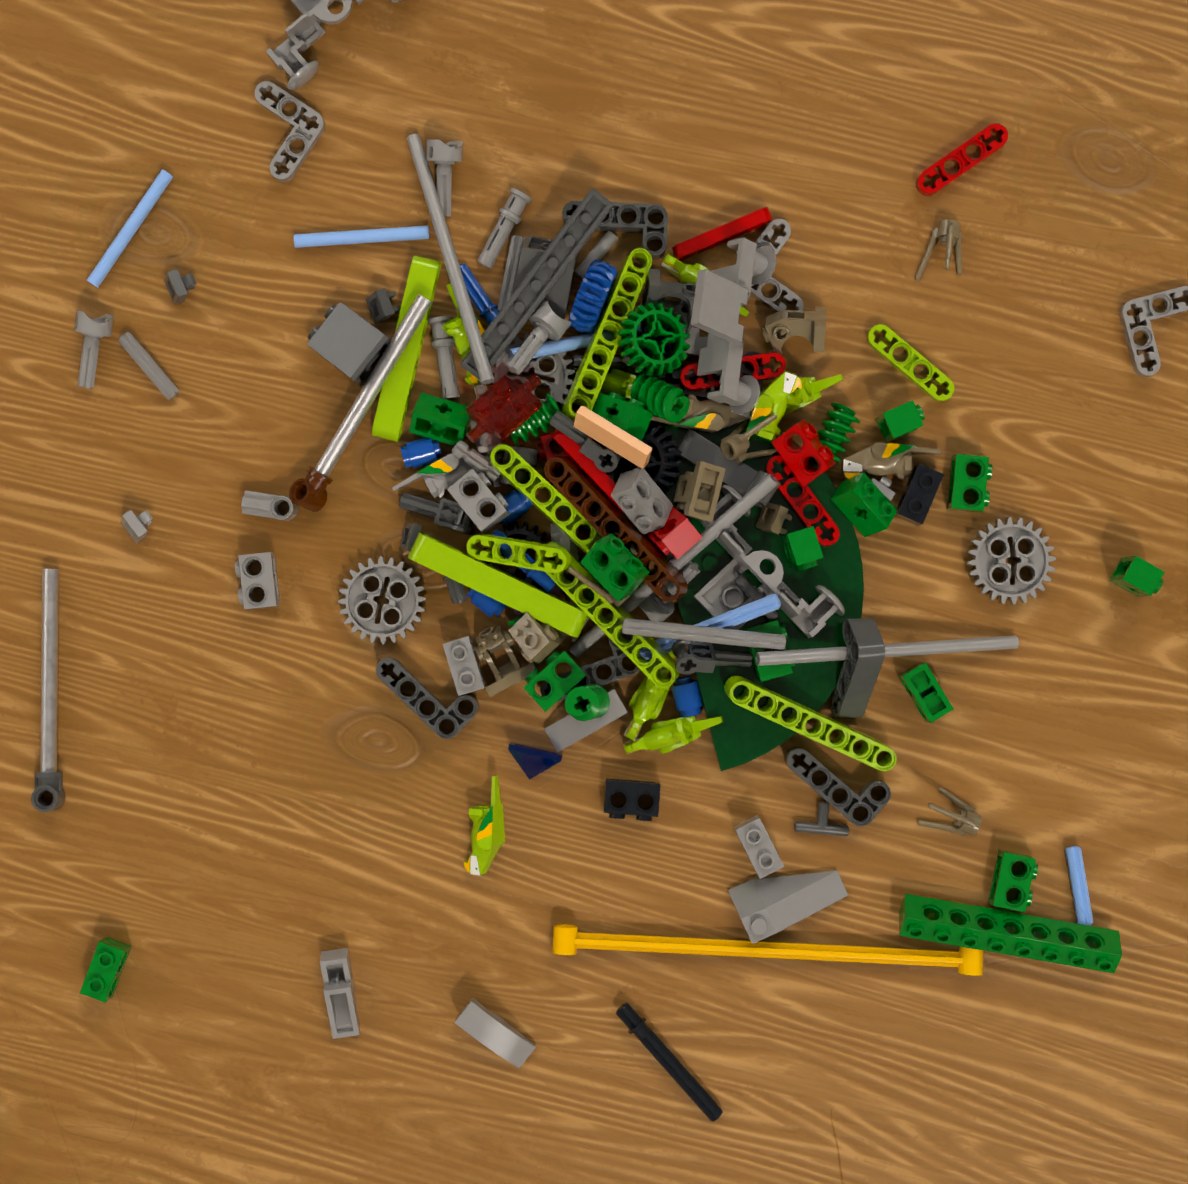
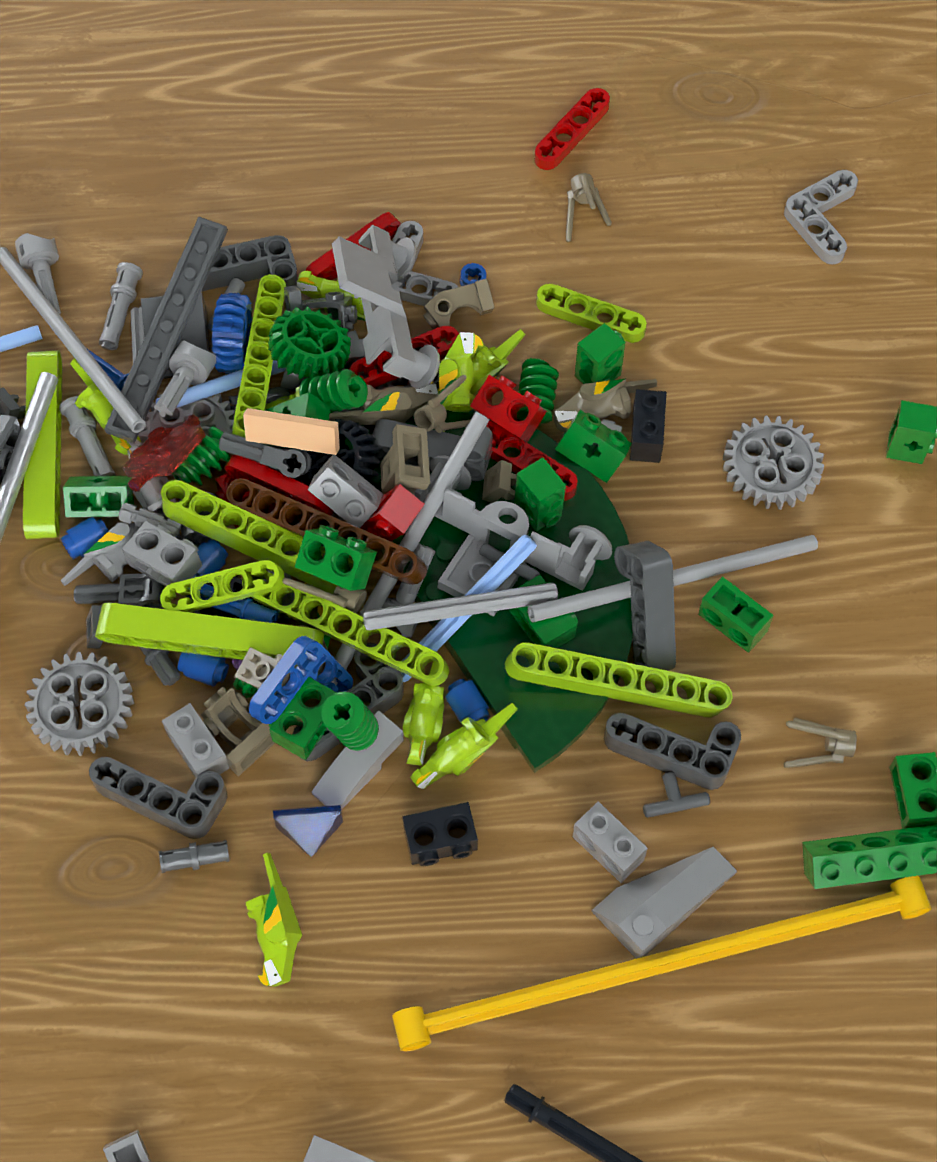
camera: 20 degrees left, 25 degrees down
(440, 755) = (194, 856): none -> dark grey pin
(568, 642) = (307, 666): none -> blue beam
(703, 658) = (473, 641): dark grey connector -> none
(821, 285) = (472, 269): none -> blue bush
(961, 482) = (691, 402): green brick -> none

